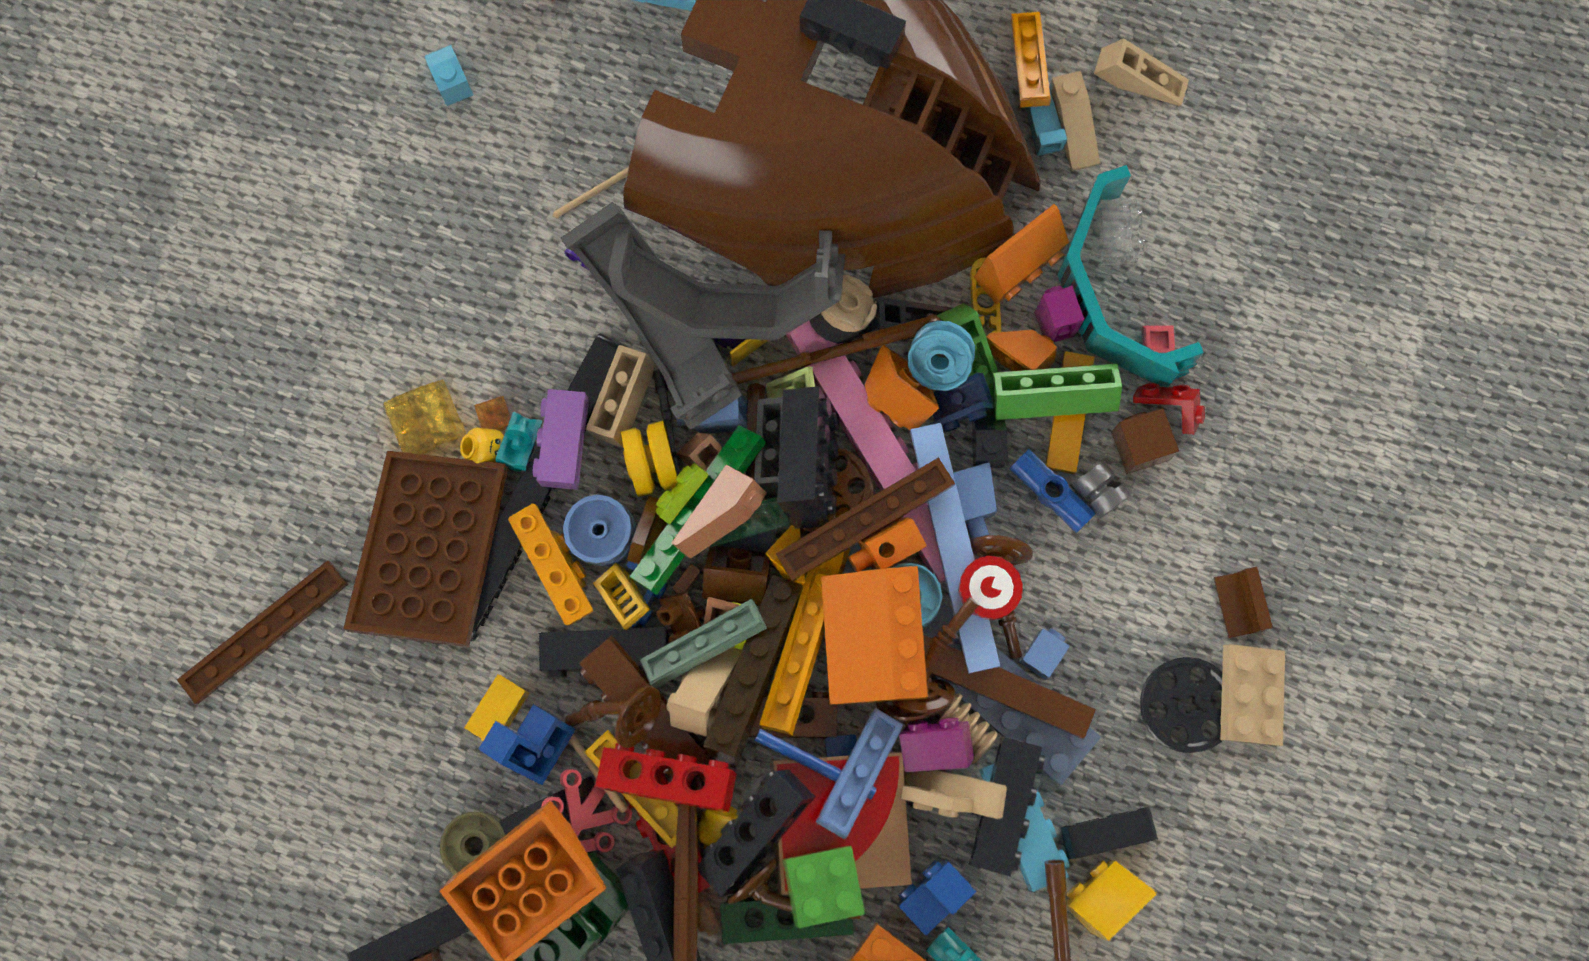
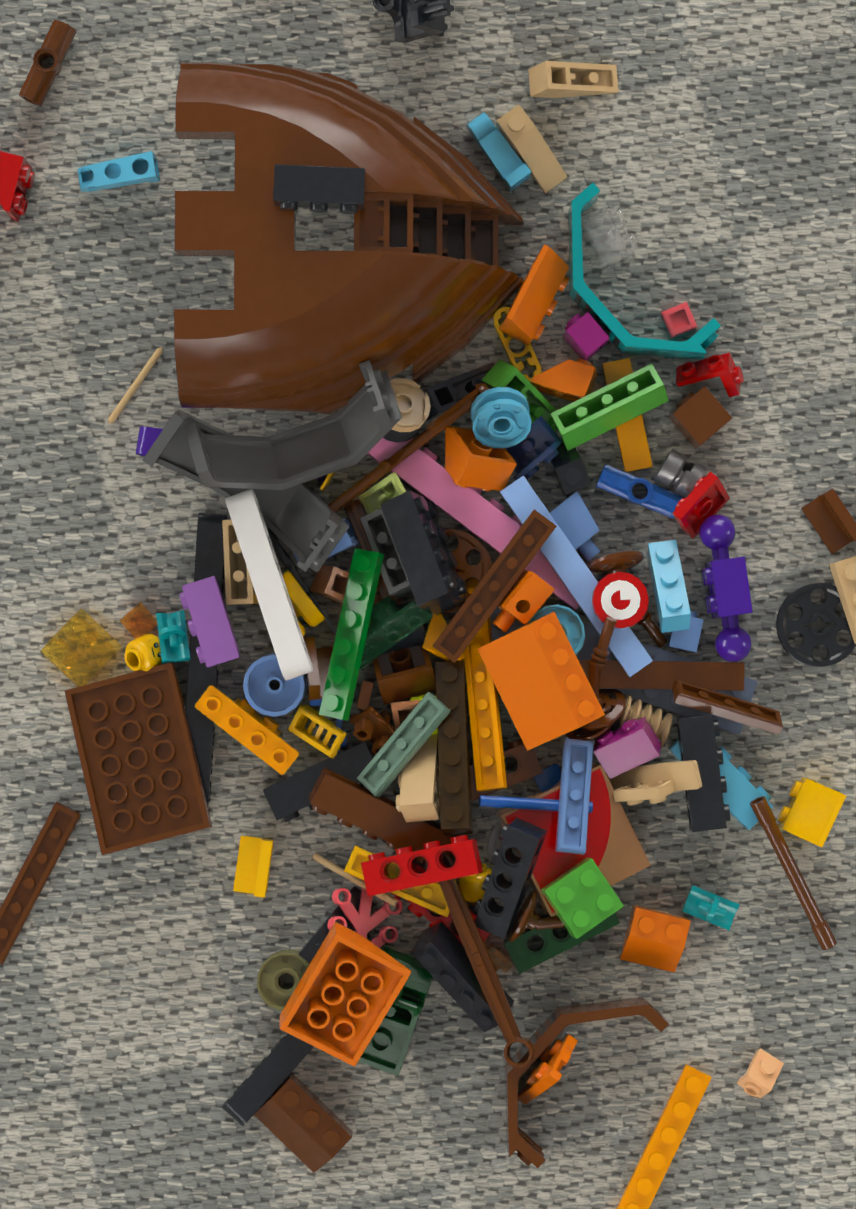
camera: 35 degrees left, 10 degrees up
(532, 748) = (298, 885): blue brick -> none
(629, 713) = (370, 826): reddish brown dish -> none
(635, 422) = (269, 584): none -> white beam
(688, 483) = (332, 626): lime plate -> none
(721, 510) = (374, 627): nougat slope -> none
(935, 896) = (672, 866): blue brick -> none
(1030, 59) = (469, 108): light orange tile -> none
(1046, 596) = (668, 586): none -> medium azure brick
(1060, 748) = (727, 707): none -> reddish brown tile
(1107, 625) = (726, 587): none -> dark purple brick
(1109, 833) = (793, 758): black beam -> none
(1112, 528) = (701, 503): none -> red plate

